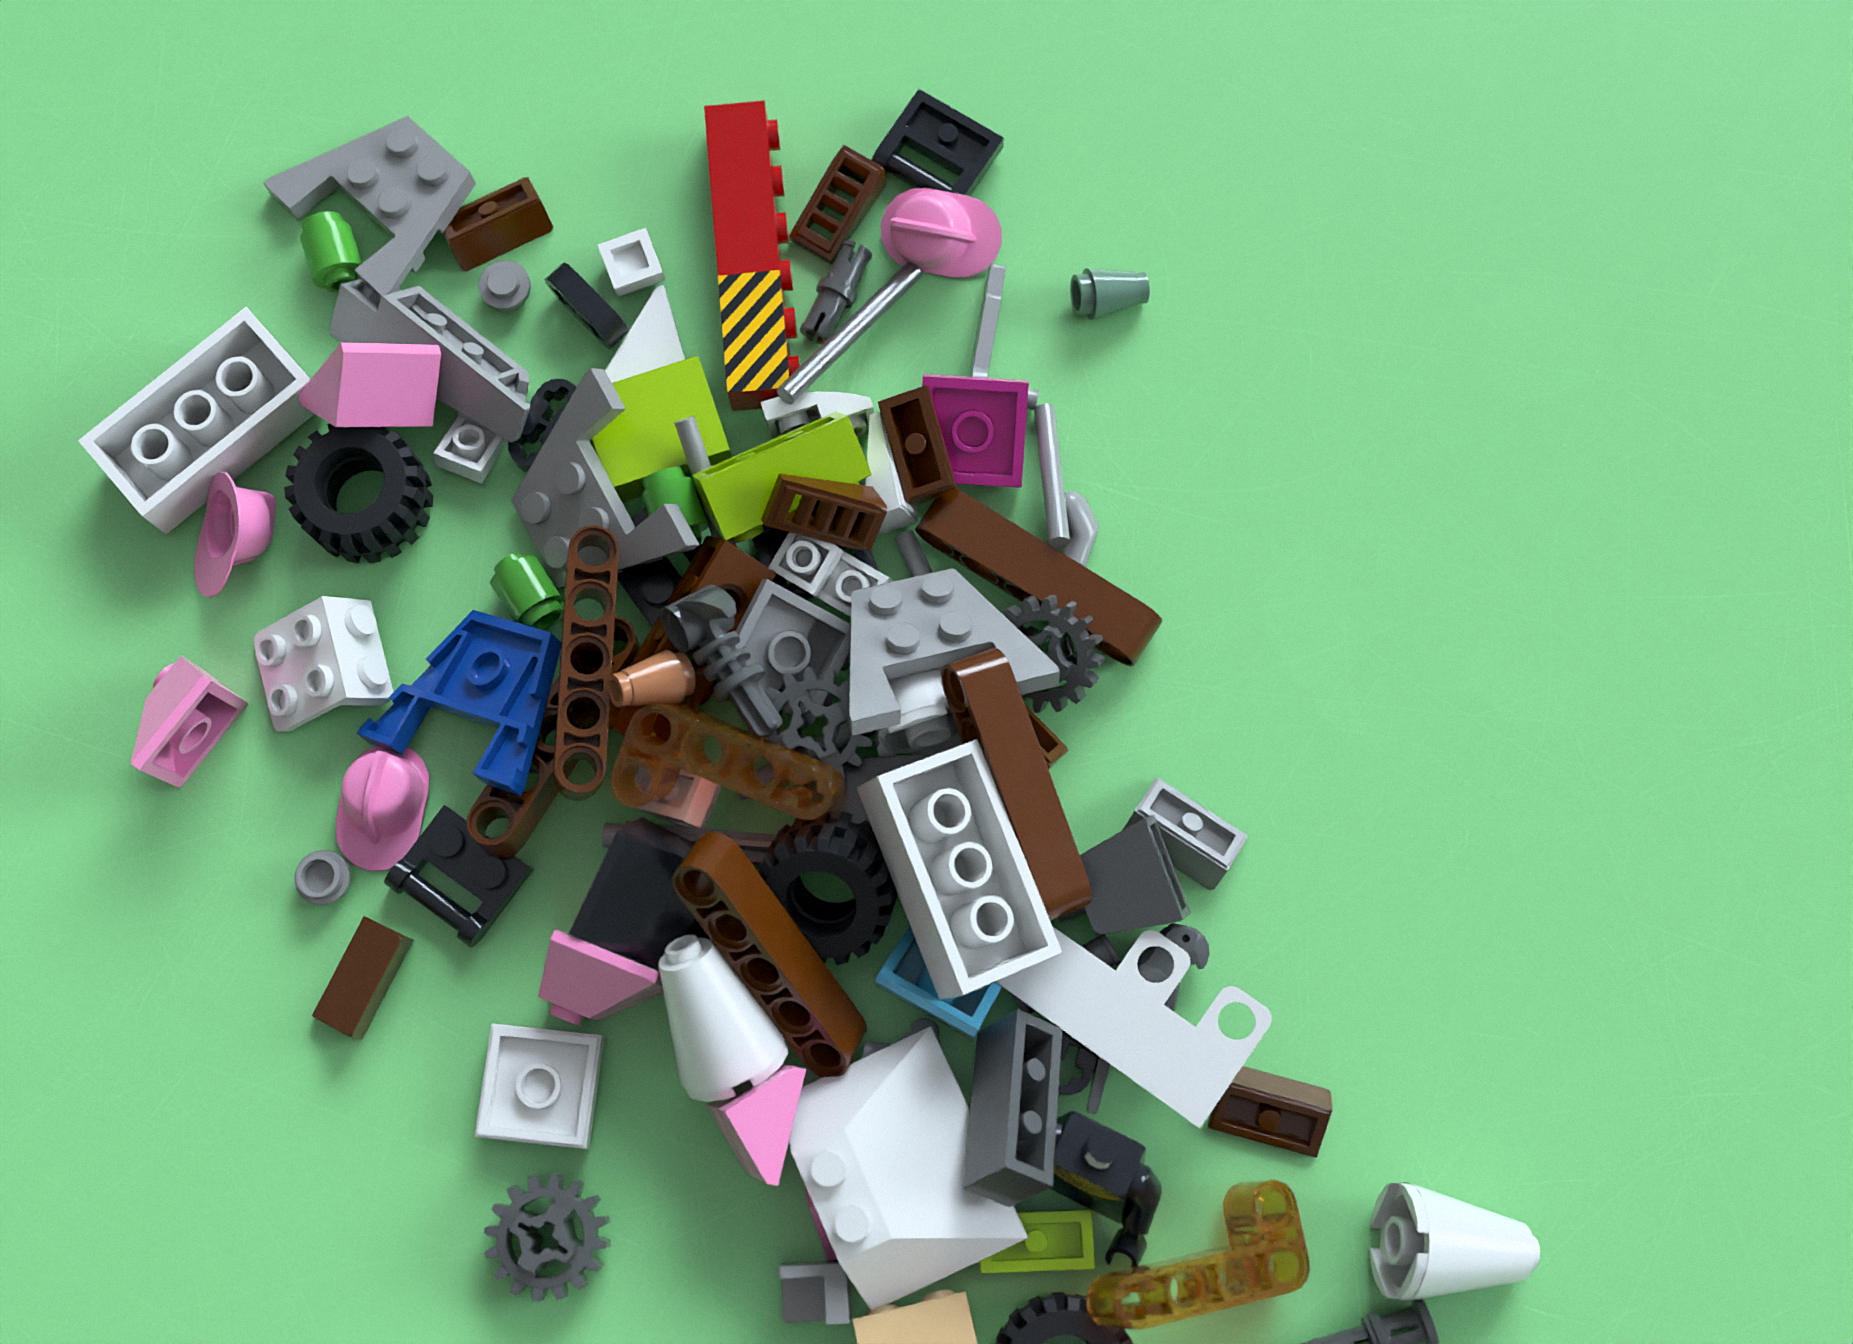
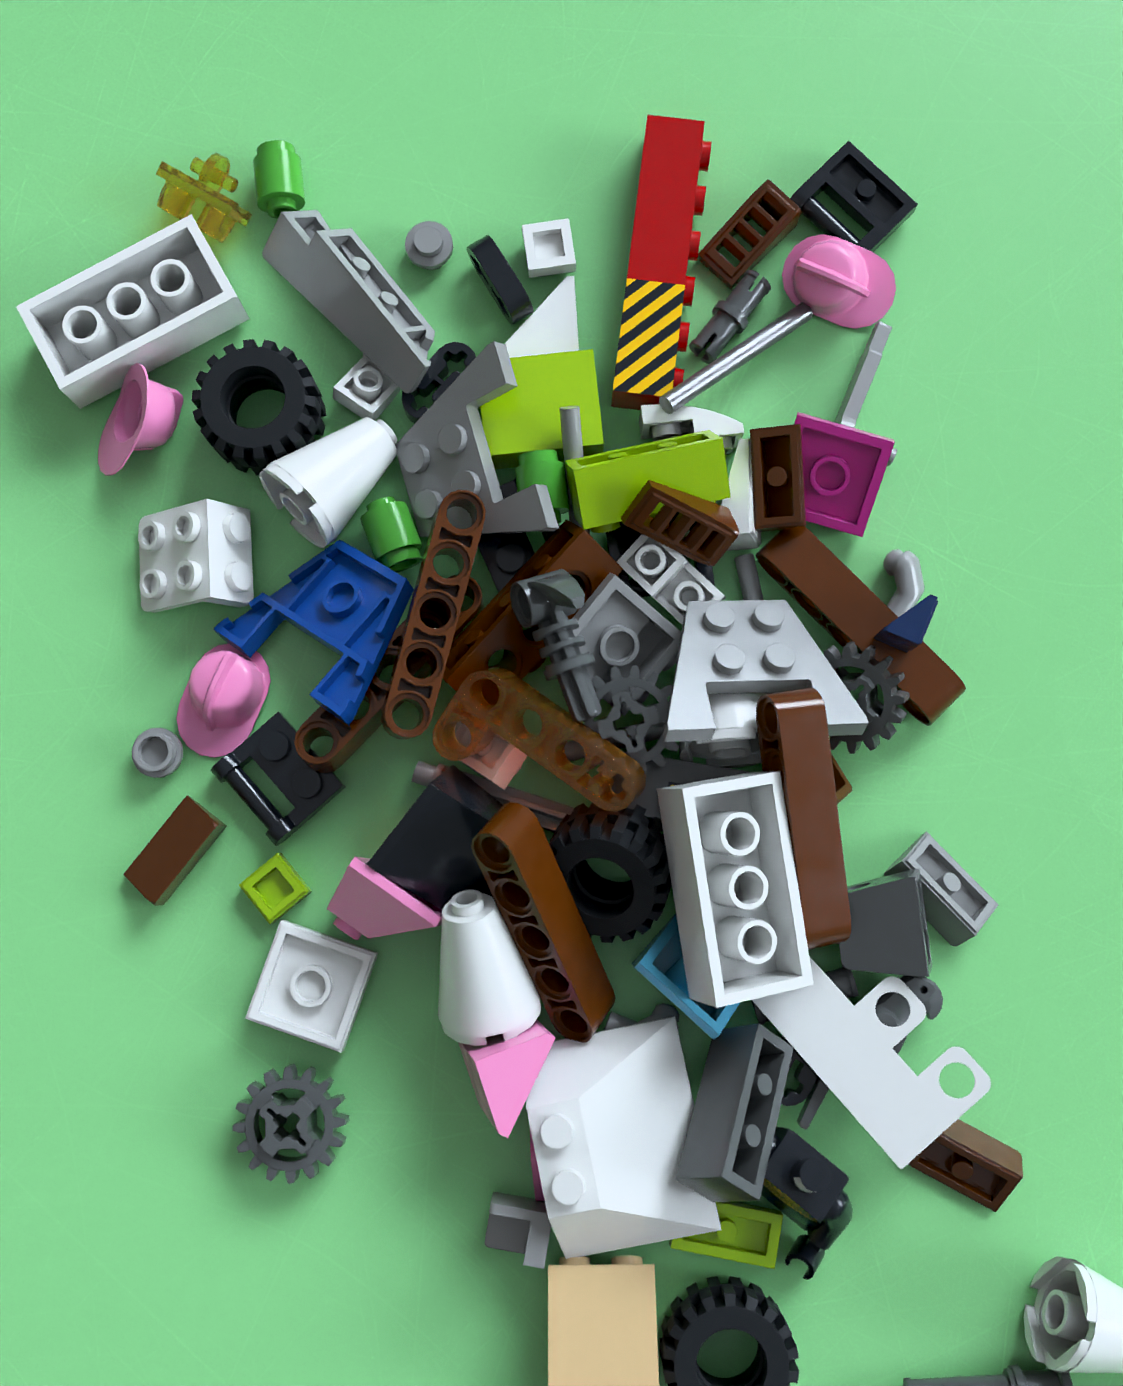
camera: 15 degrees right, 5 degrees up
(182, 721) = (60, 584): bright pink slope -> none
(230, 285) = (182, 191): none -> clear yellow hips
(376, 385) = (294, 314): bright pink slope -> none
(397, 180) = (353, 127): light grey wing -> none
(449, 547) = (330, 477): none -> white cone
(479, 993) = (275, 888): none -> lime tile
(497, 224) = (432, 185): reddish brown slope -> none
(658, 679) = (492, 647): nougat cone -> none
(1051, 476) = (893, 533): light grey bar -> none
(1081, 568) = (909, 628): none -> dark blue slope
(1107, 291) = (981, 370): sand green cone -> none
(1199, 1274) = (920, 1304): clear orange beam -> none

